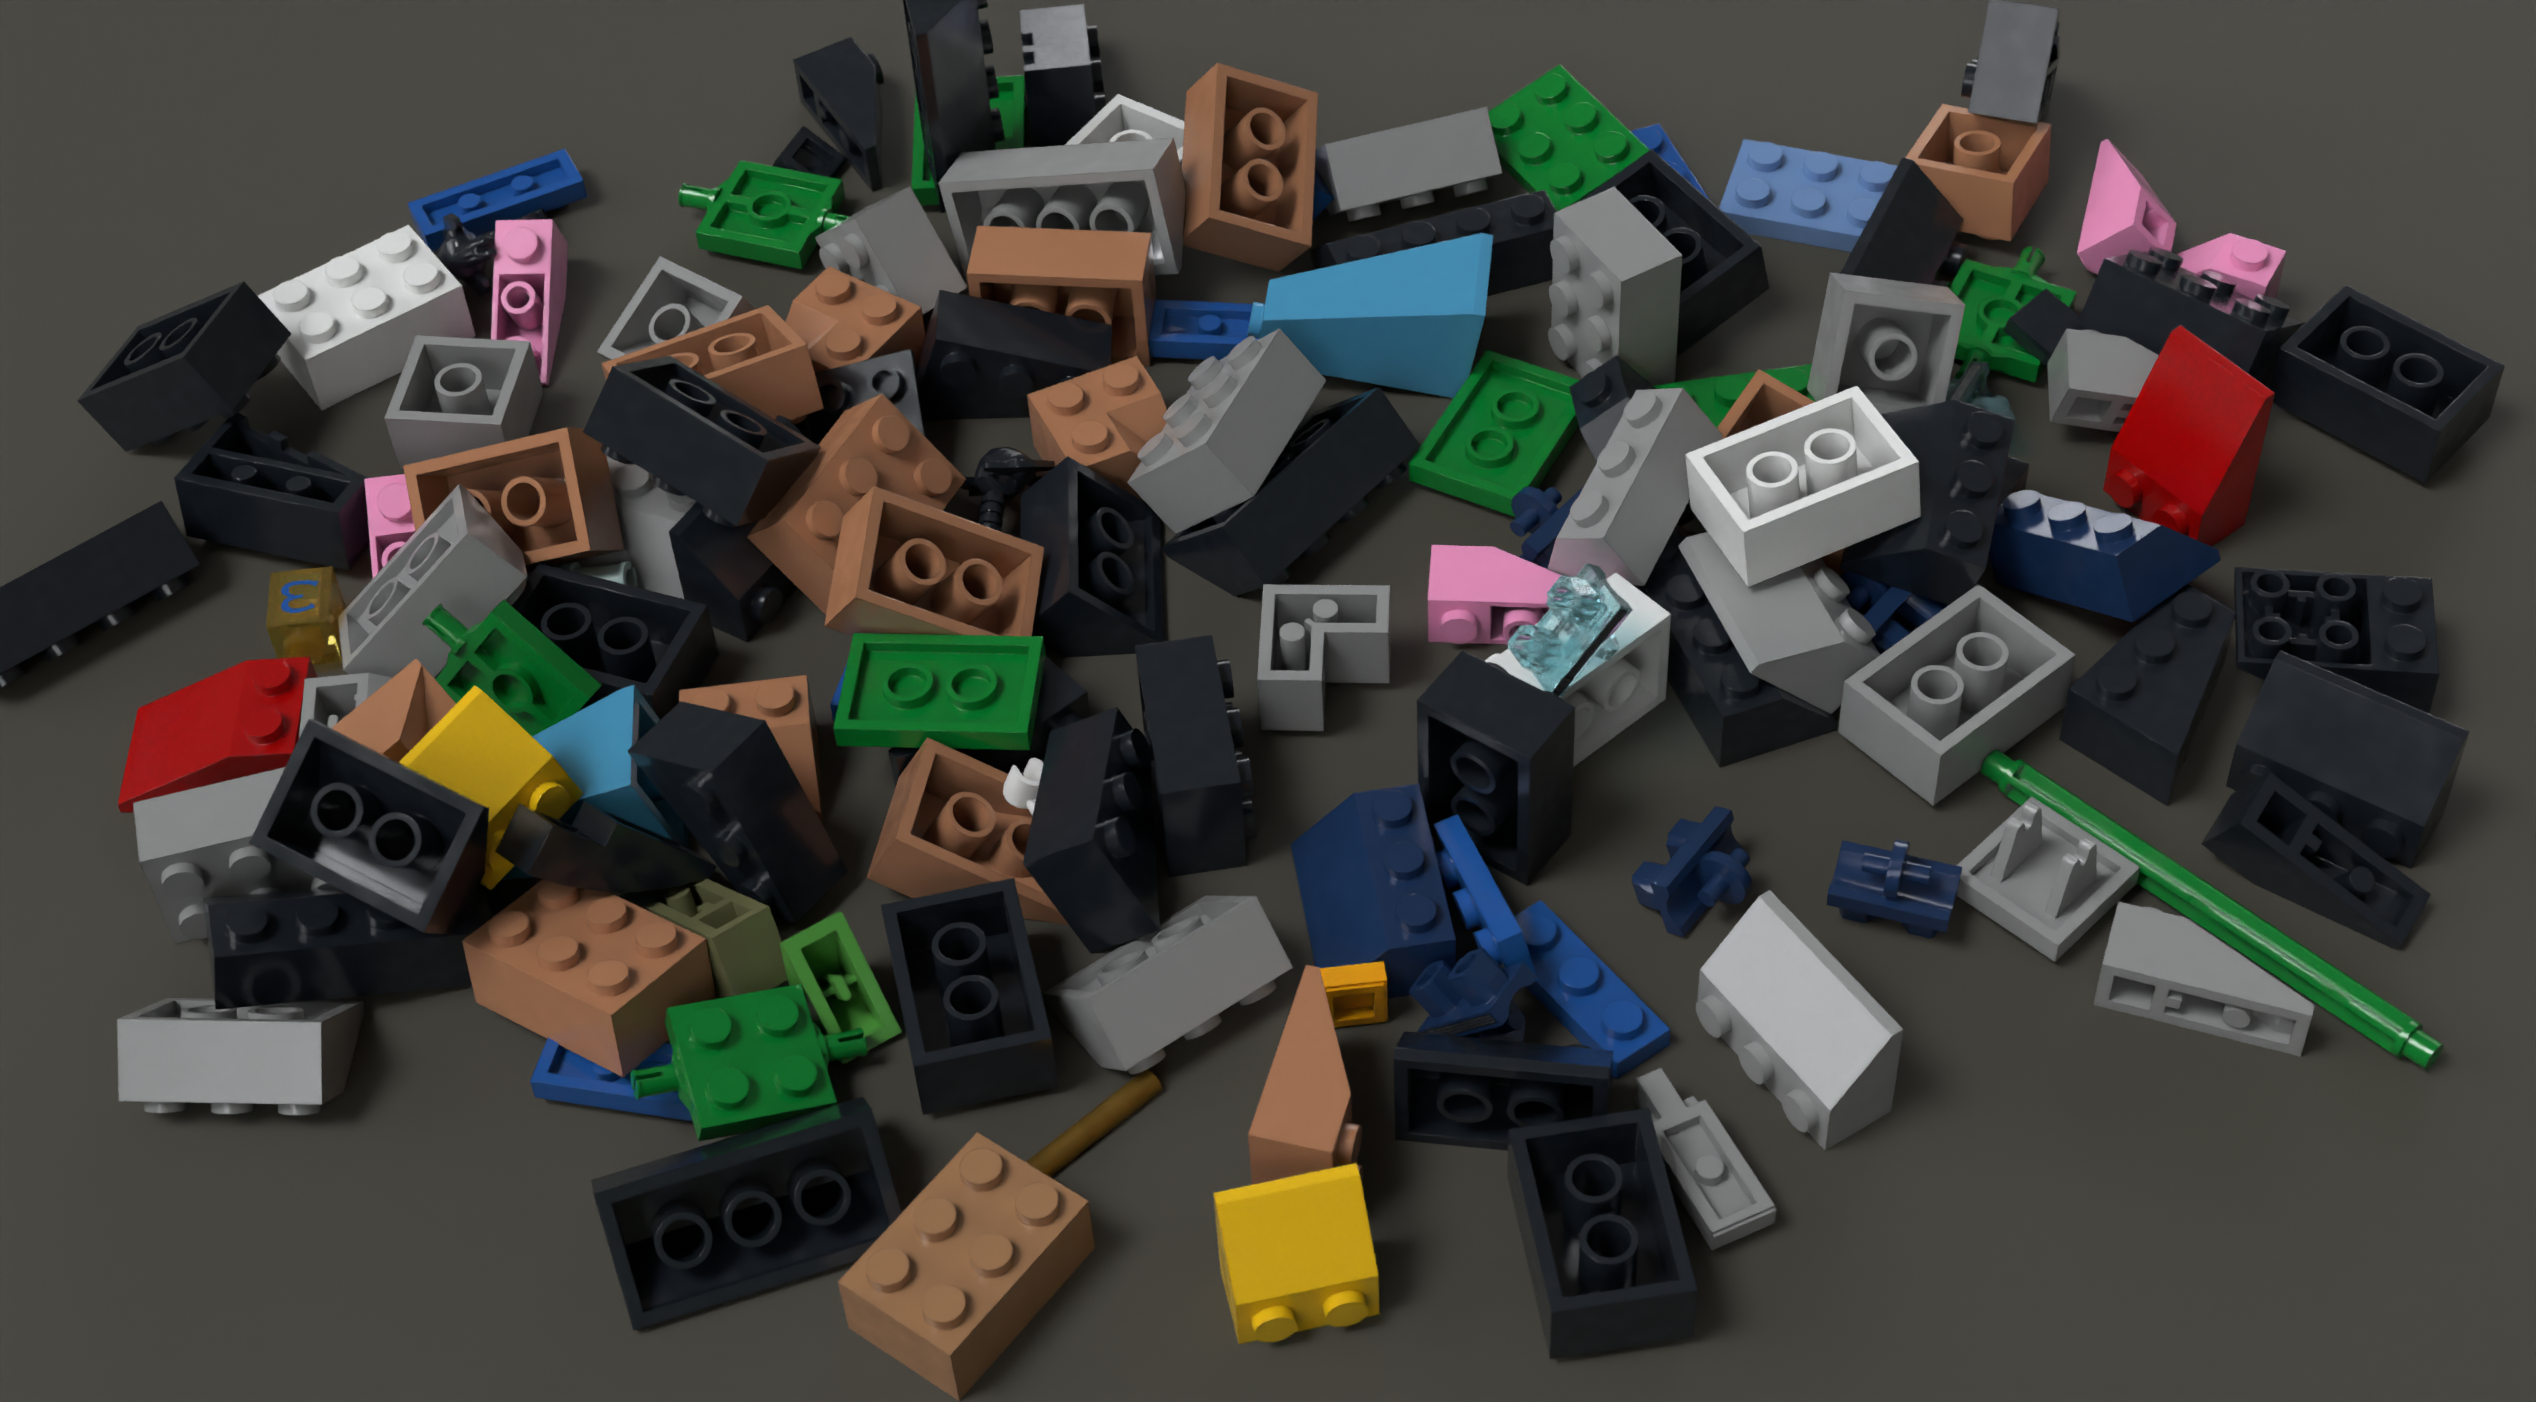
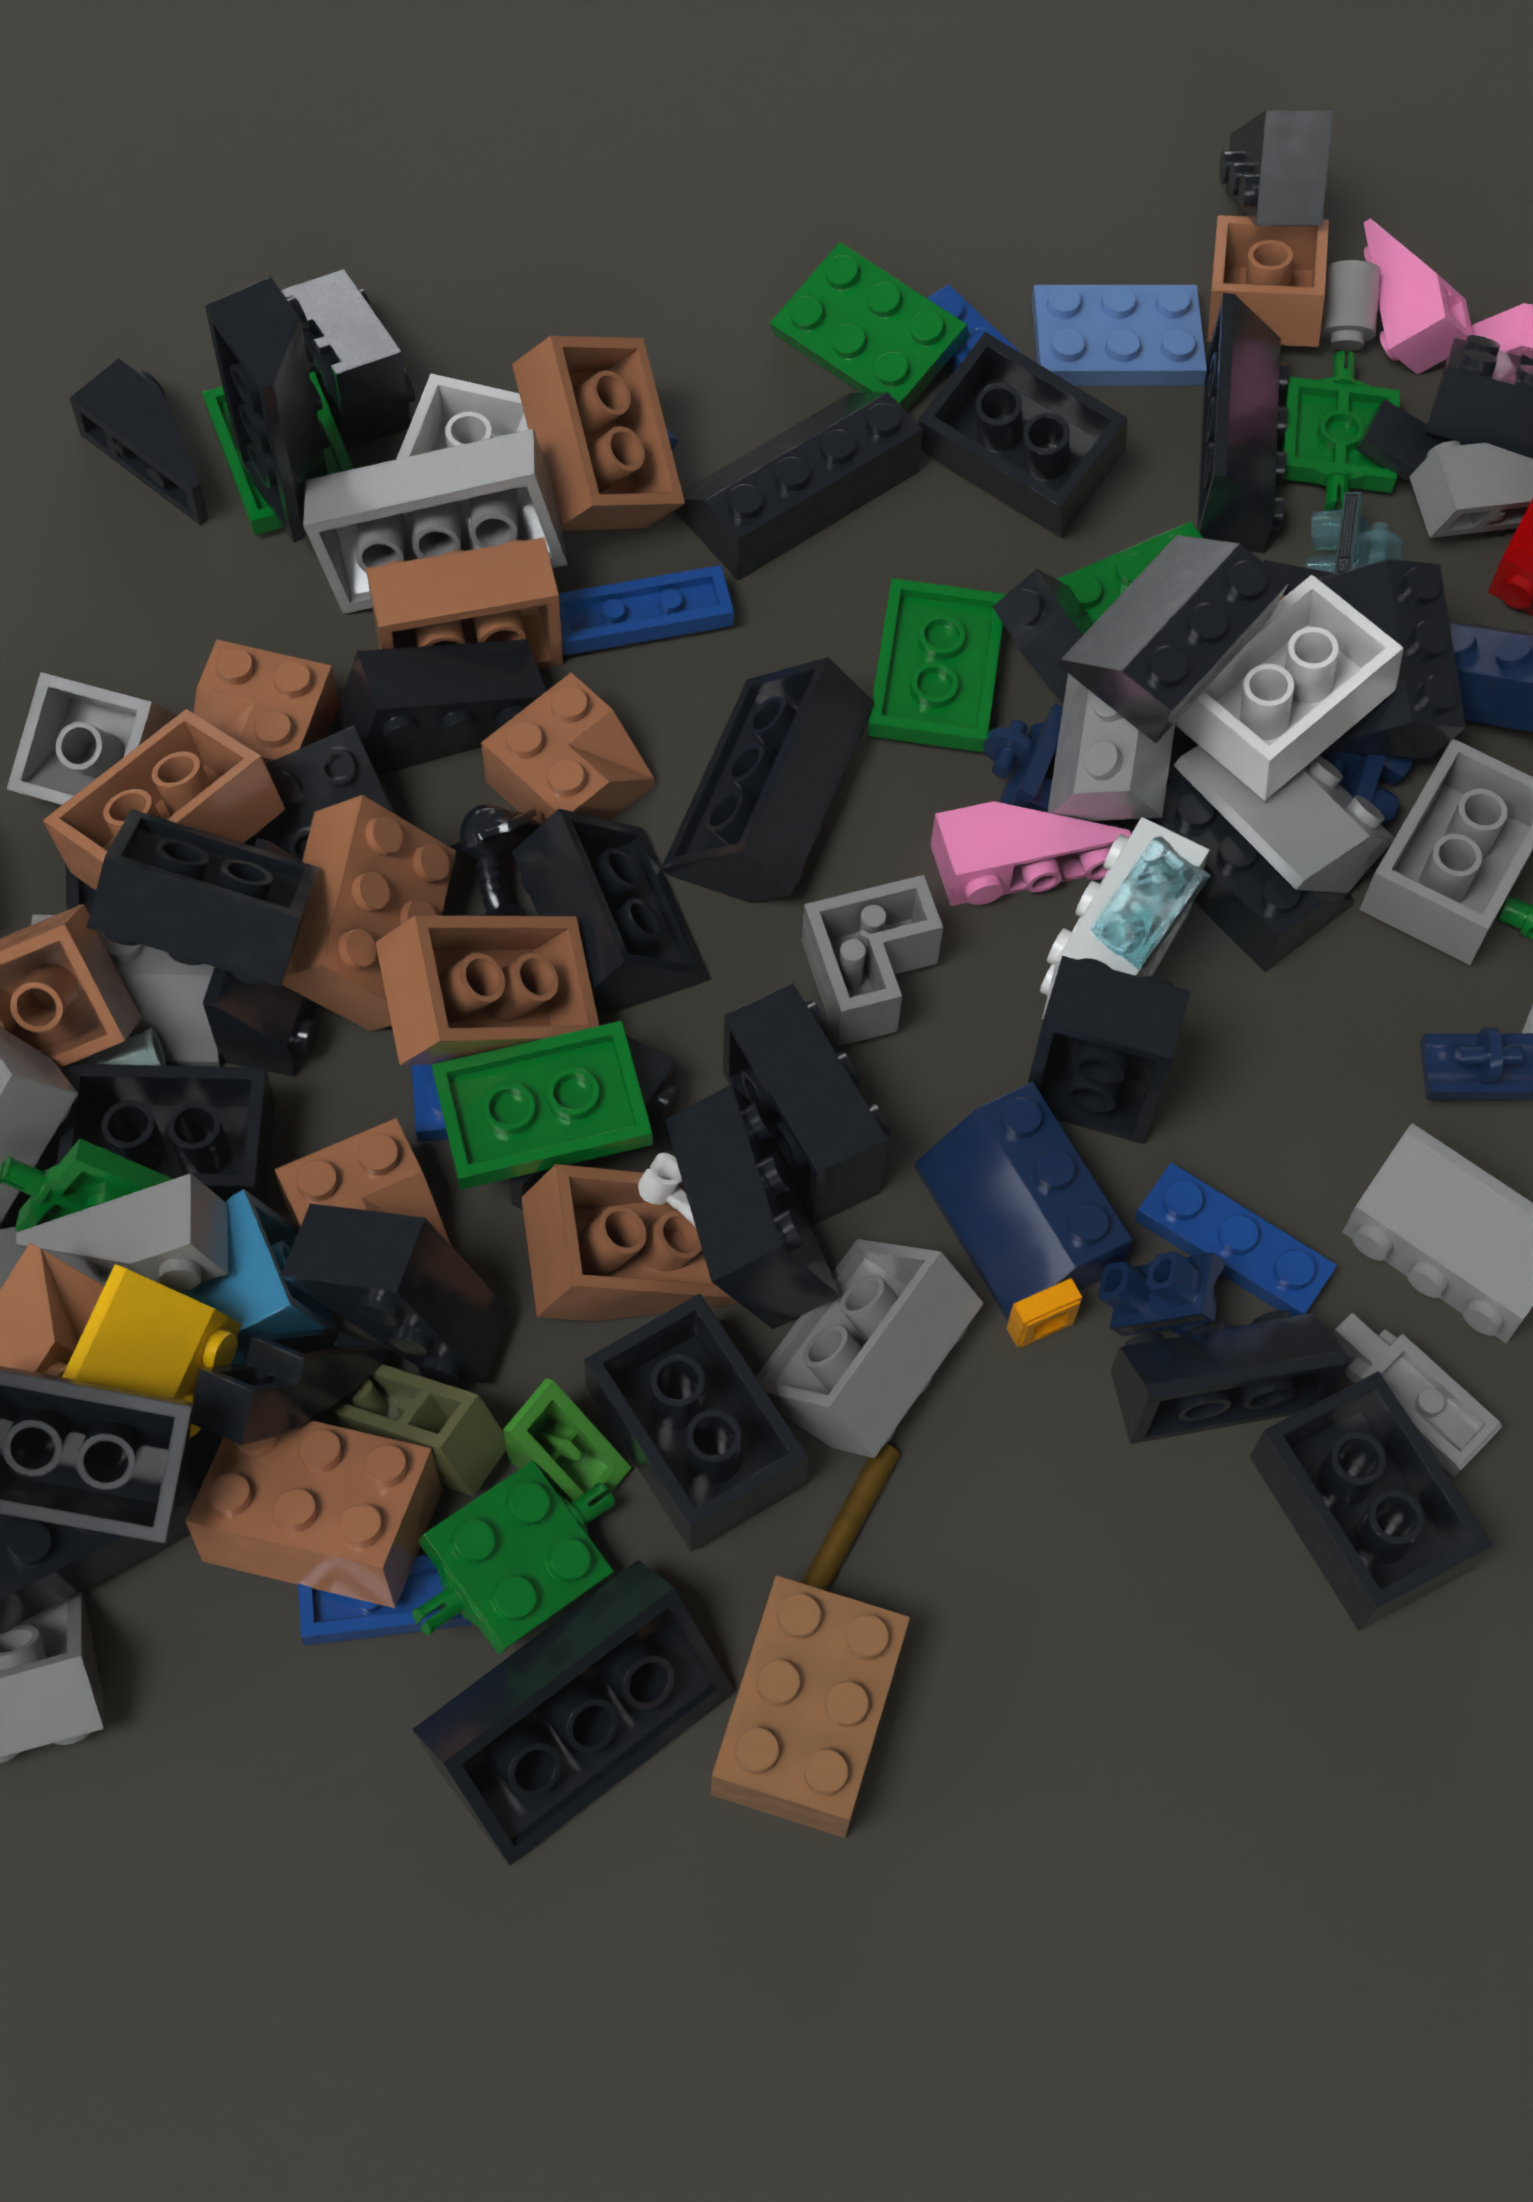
camera: 25 degrees left, 15 degrees up
(548, 694) = (161, 1232): none -> light grey slope
(766, 213) = (113, 580): green plate -> none
(810, 155) = (122, 511): black slope -> none
(893, 250) = (270, 600): light grey brick -> none
(1226, 430) = (695, 737): light grey brick -> none
(1297, 1254) = (1116, 1612): yellow slope -> none
(1306, 1100) = (1072, 1456): nougat slope -> none
(1388, 317) = (795, 572): dark azure slope -> none
(1409, 164) = (738, 380): light grey slope -> none
(1479, 896) = (1133, 1188): blue plate -> none
(1614, 289) = (1009, 499): light grey brick -> none
(1693, 403) = (1175, 630): none -> black slope
(1702, 869) = (1306, 1092): dark blue hips -> none
(1886, 340) = (1291, 502): light grey brick -> none
(2056, 207) = (1350, 304): none -> light grey brick

